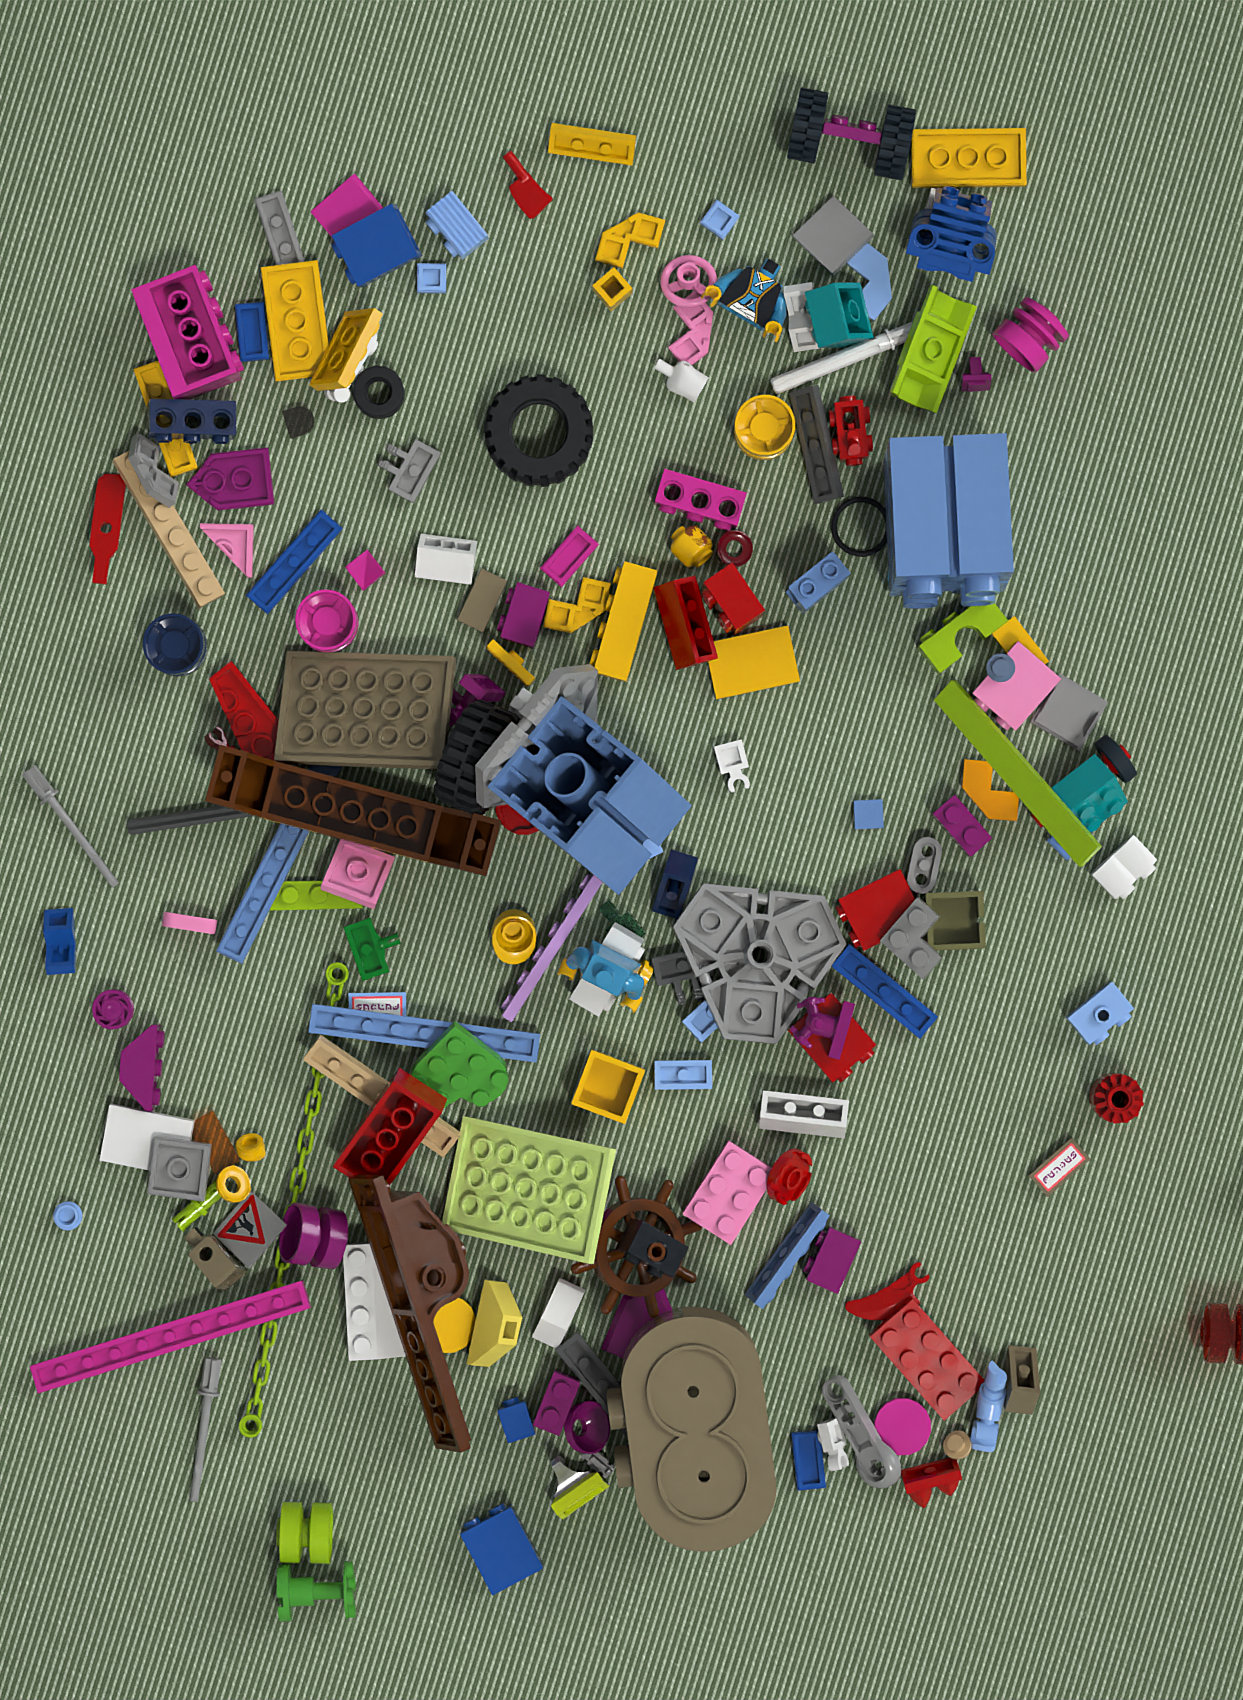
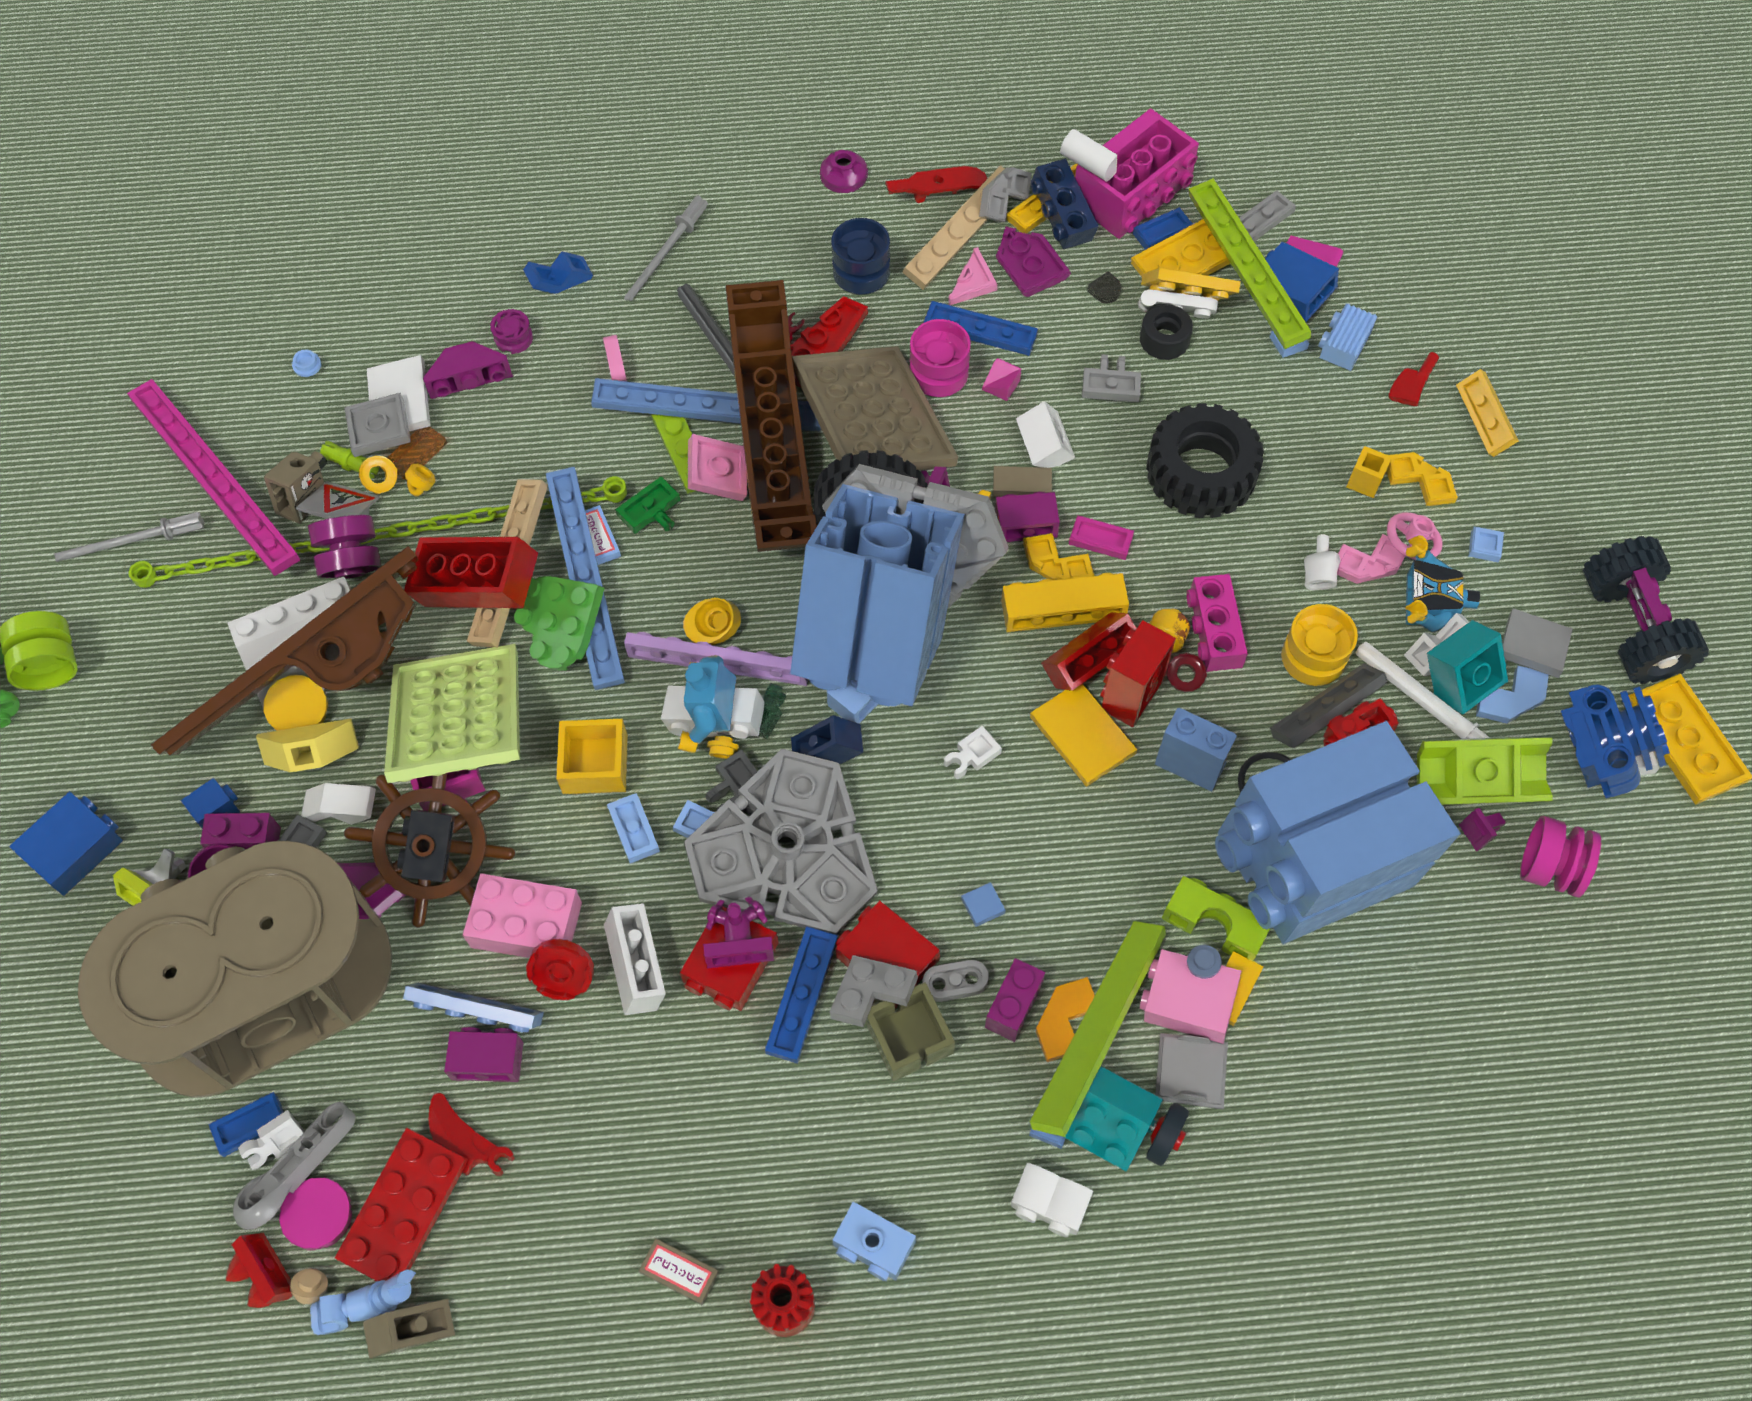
camera: 70 degrees right, 25 degrees down
(59, 617) = (843, 178): none -> magenta piece
(176, 384) = (1089, 155): none -> white brick
(345, 283) = (1249, 264): none -> lime plate

